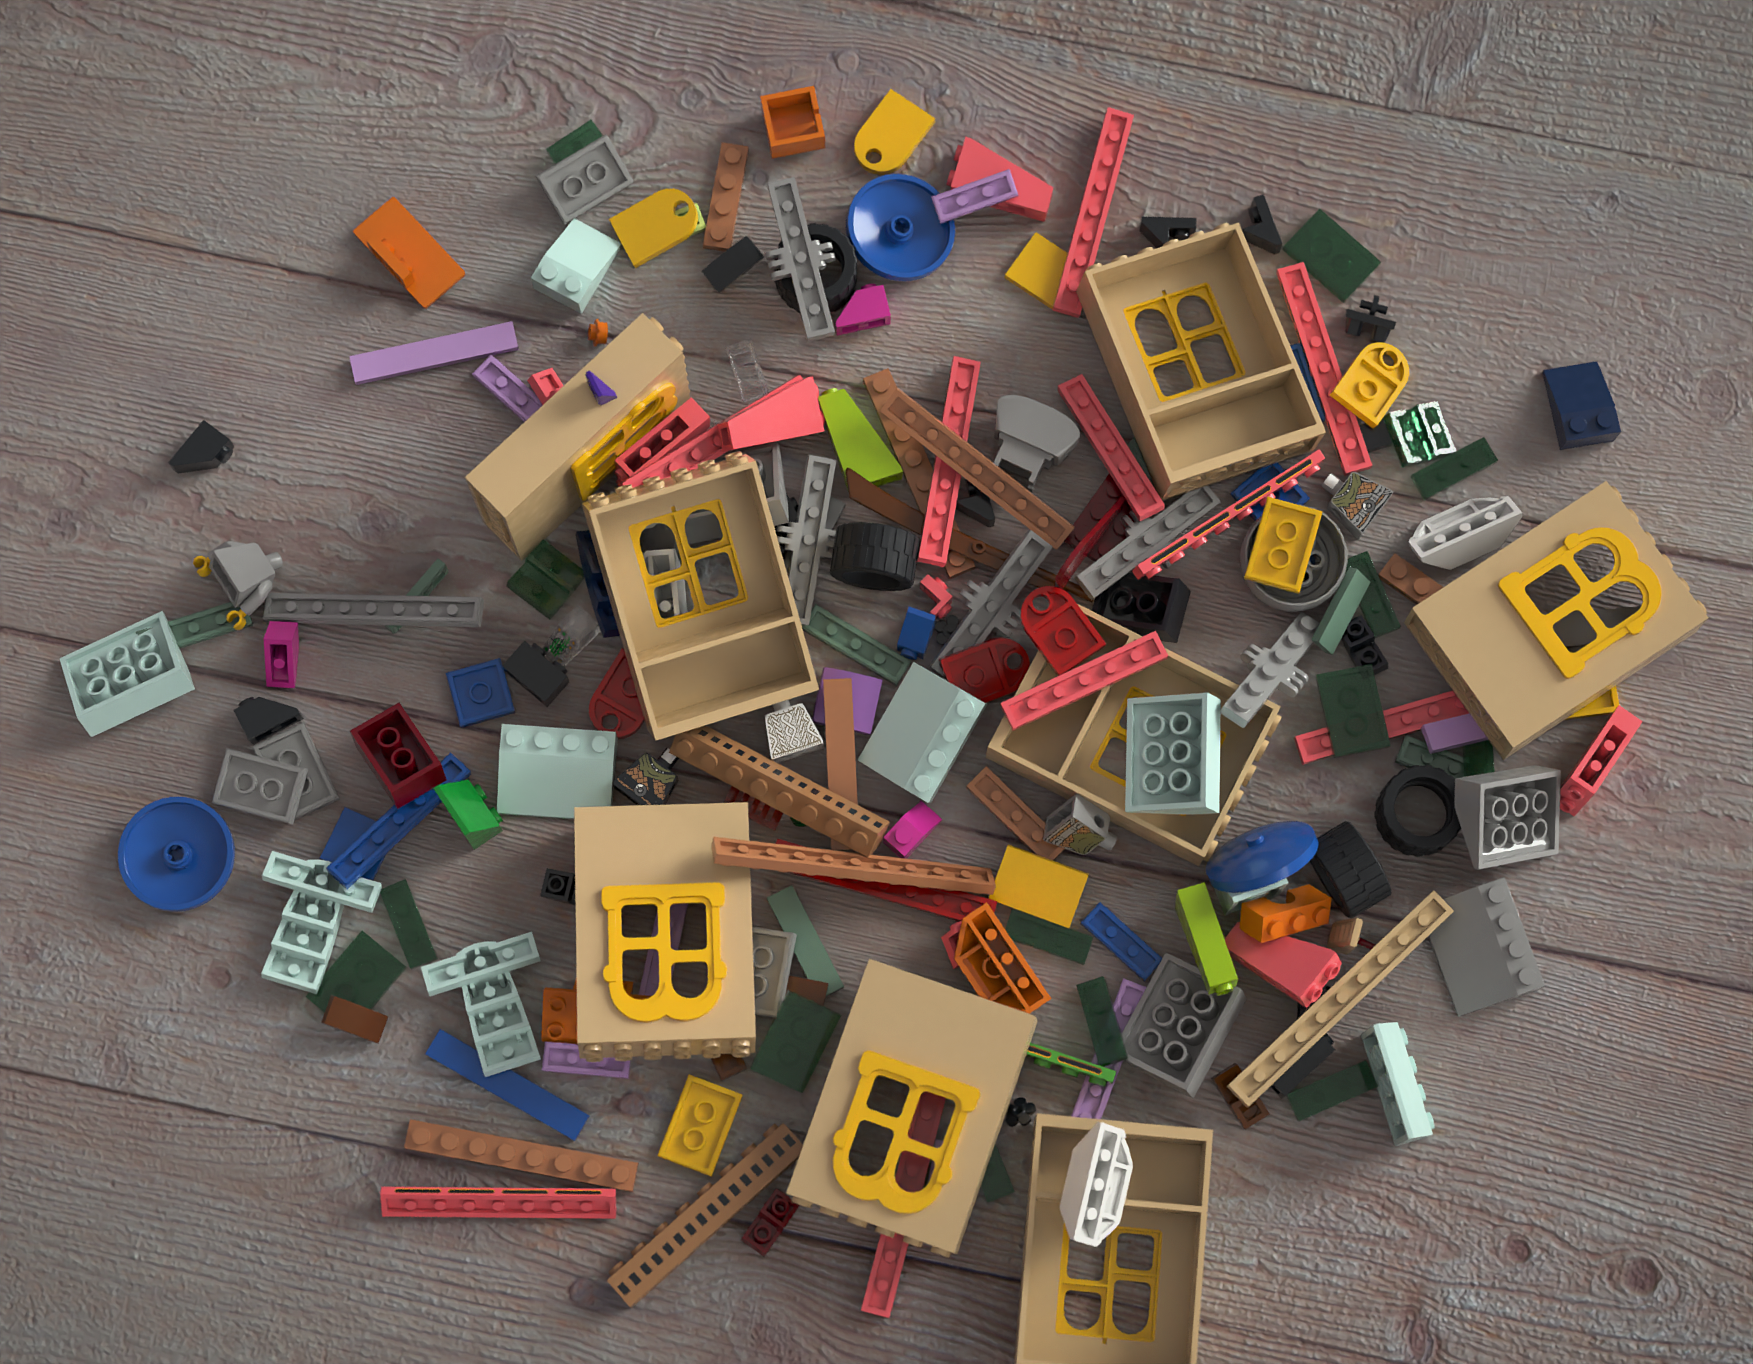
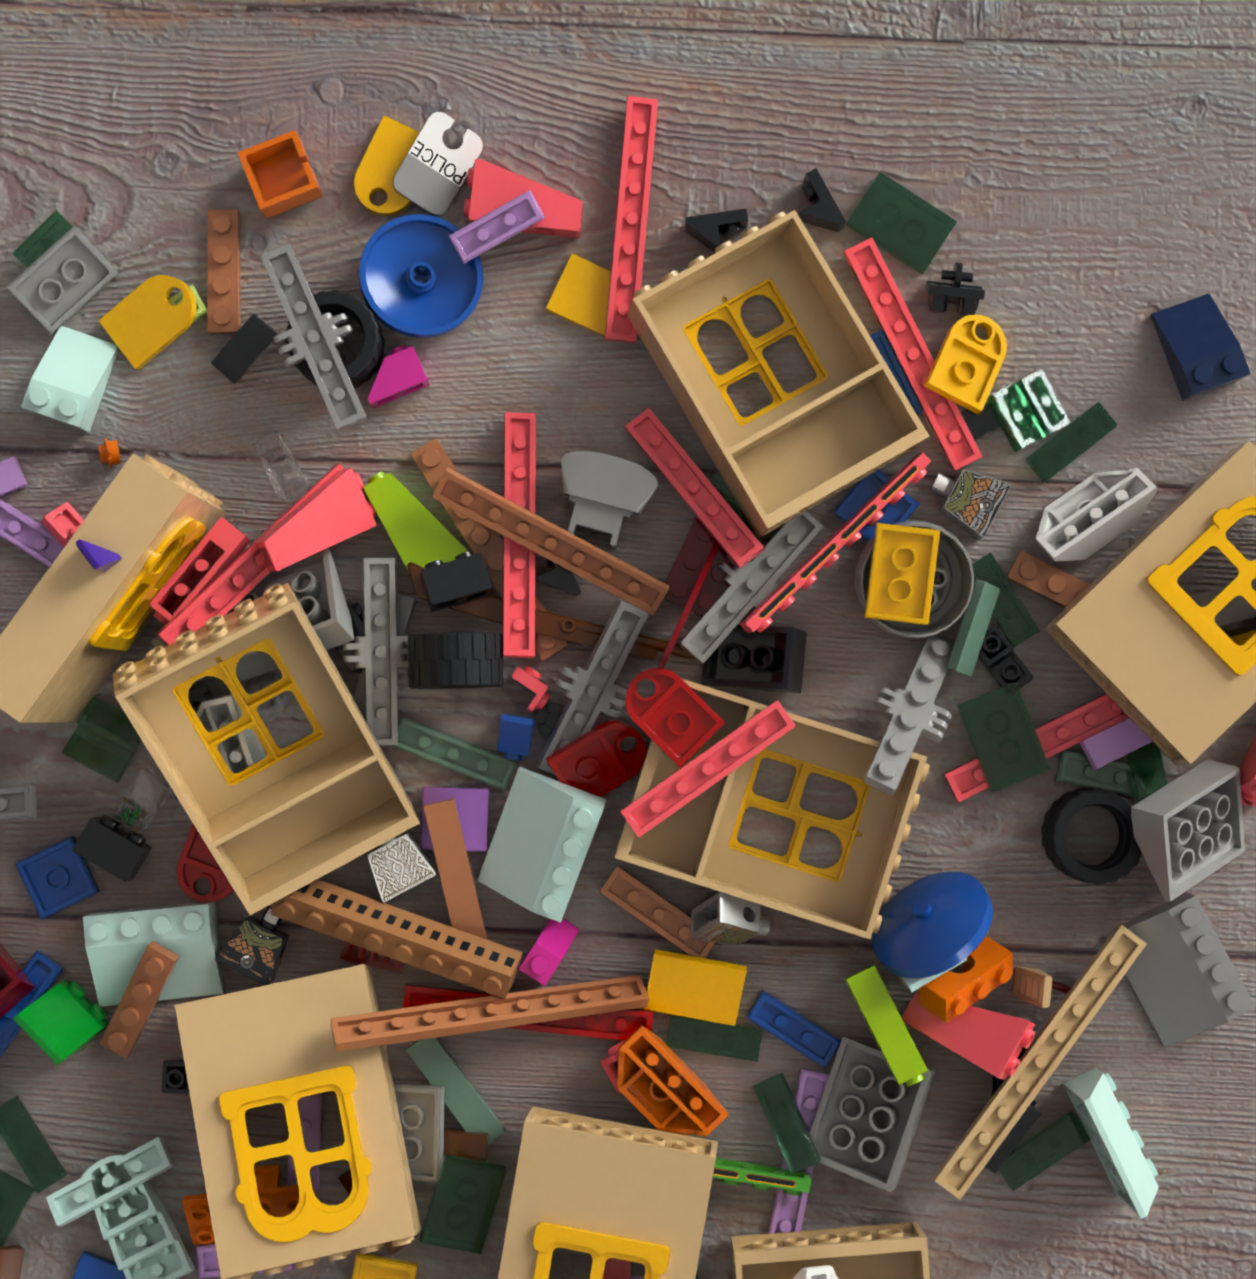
camera: 10 degrees left, 10 degrees up
(536, 808) = (139, 999): none -> nougat plate
(887, 488) = (455, 581): none -> black brick
(925, 143) = (432, 171): none -> piece
(1020, 1112) = (714, 1234): black plant -> none
(1173, 754) = (819, 836): light aqua slope -> none
(1245, 1116) = (929, 1160): reddish brown slope -> none
(1349, 870) = (1029, 920): black tyre -> none

